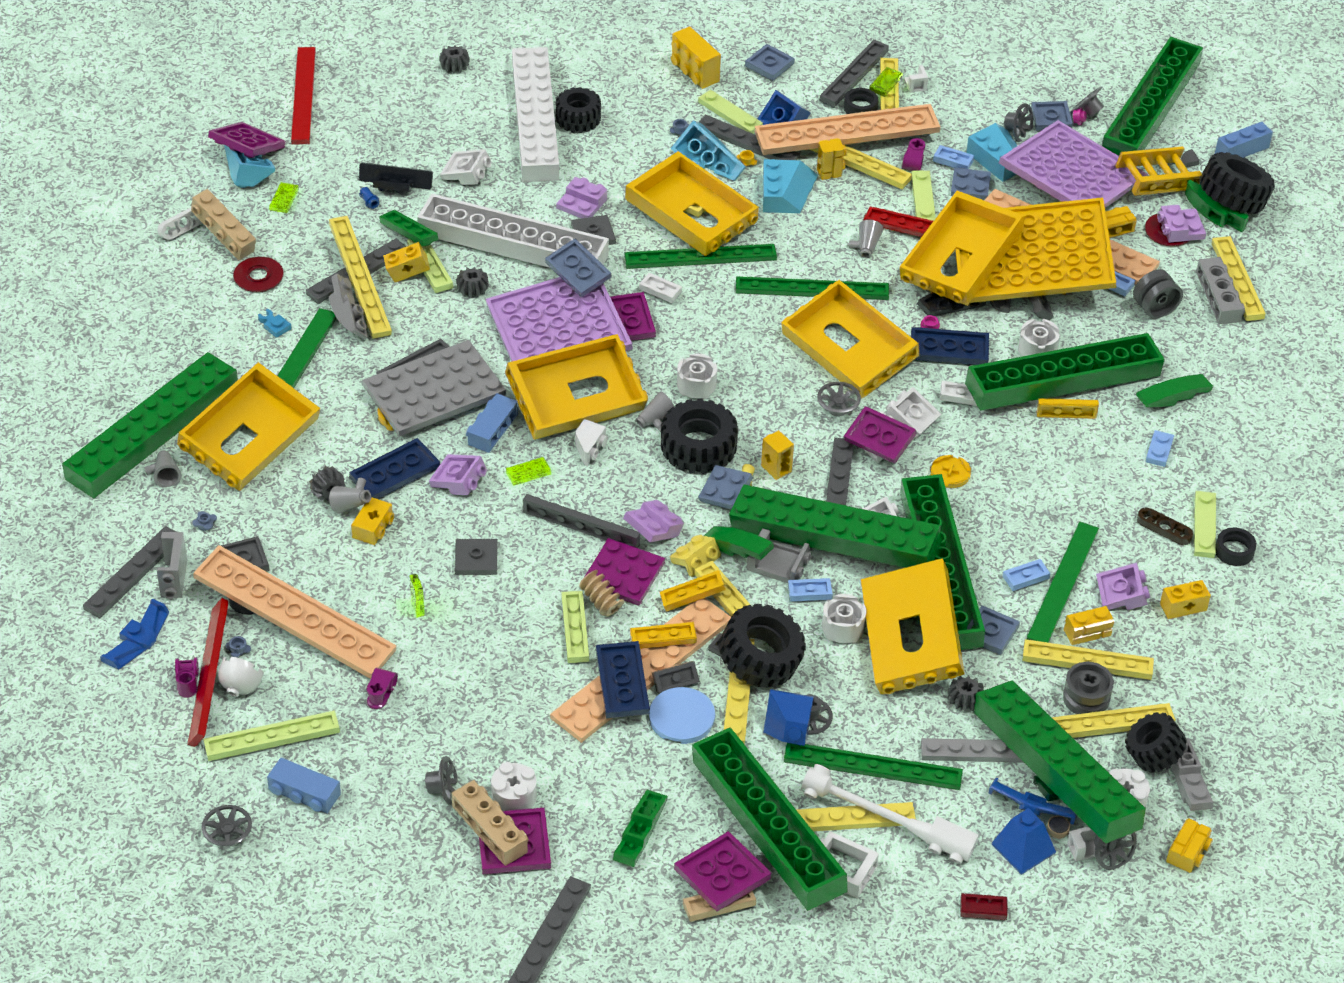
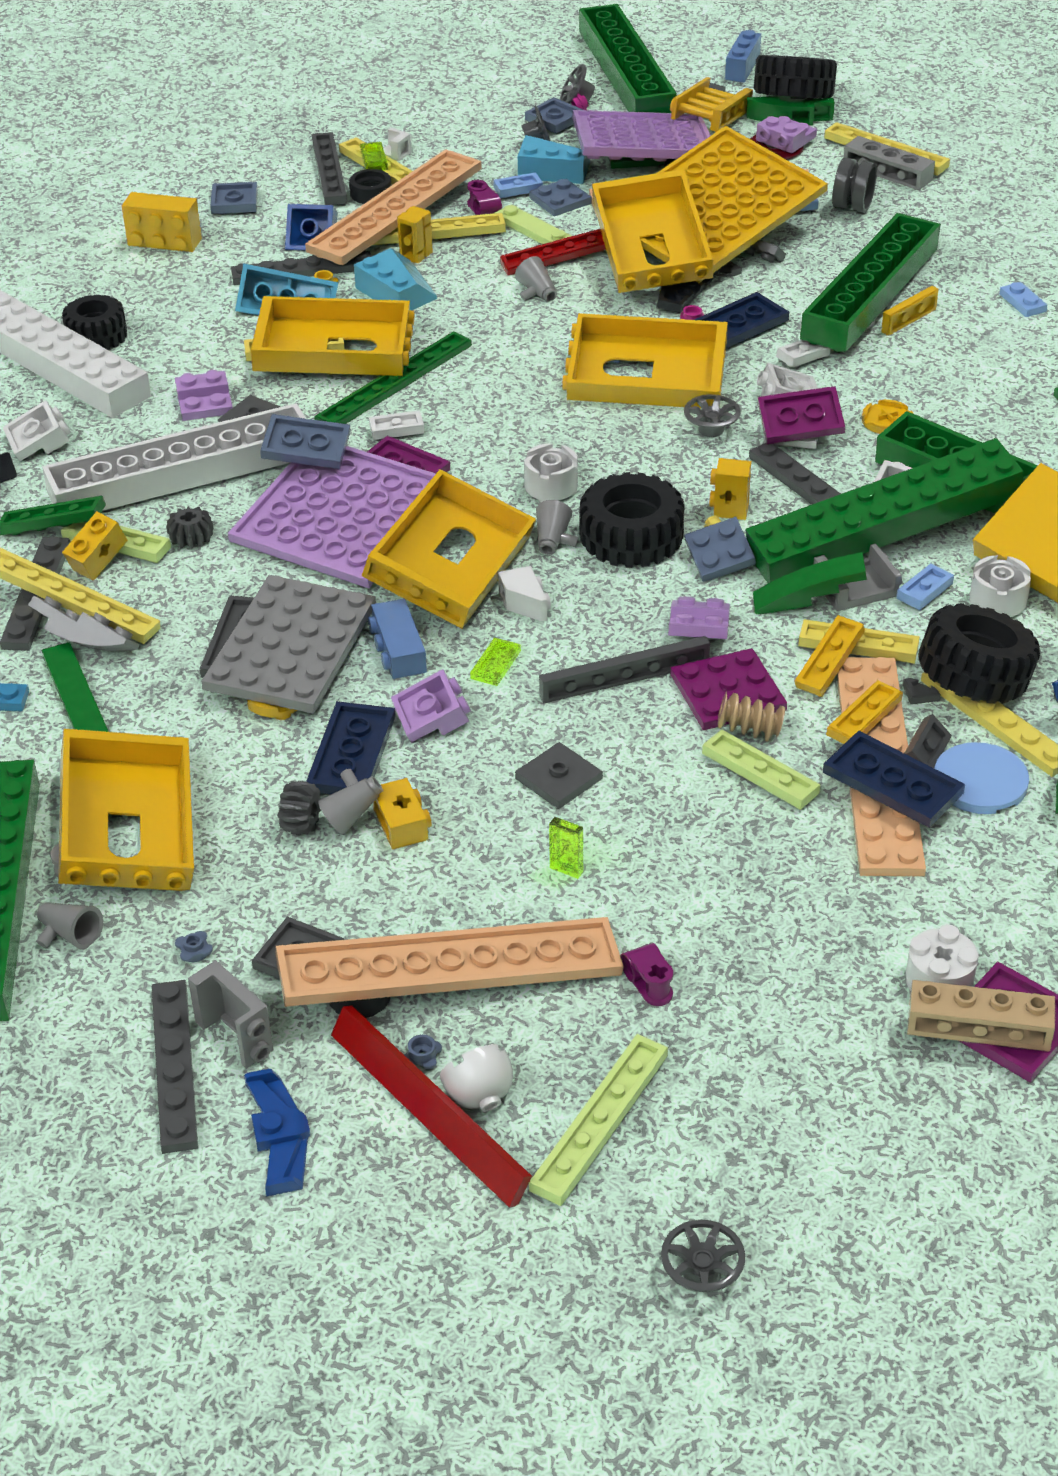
camera: 40 degrees left, 5 degrees down
(186, 676) = (406, 1129): magenta piece -> none
(303, 785) = (717, 1141): medium blue brick -> none
(440, 780) = (857, 1019): dark grey wheel -> none
(679, 126) = (218, 289): sand blue plate -> none
(696, 553) = (774, 624): light yellow bracket -> none
(729, 111) = (248, 253): yellowish green plate -> none
(806, 287) = (522, 356): green tile -> none
(1038, 337) = (809, 272): white brick -> none
(1172, 390) = (971, 249): green slope -> none

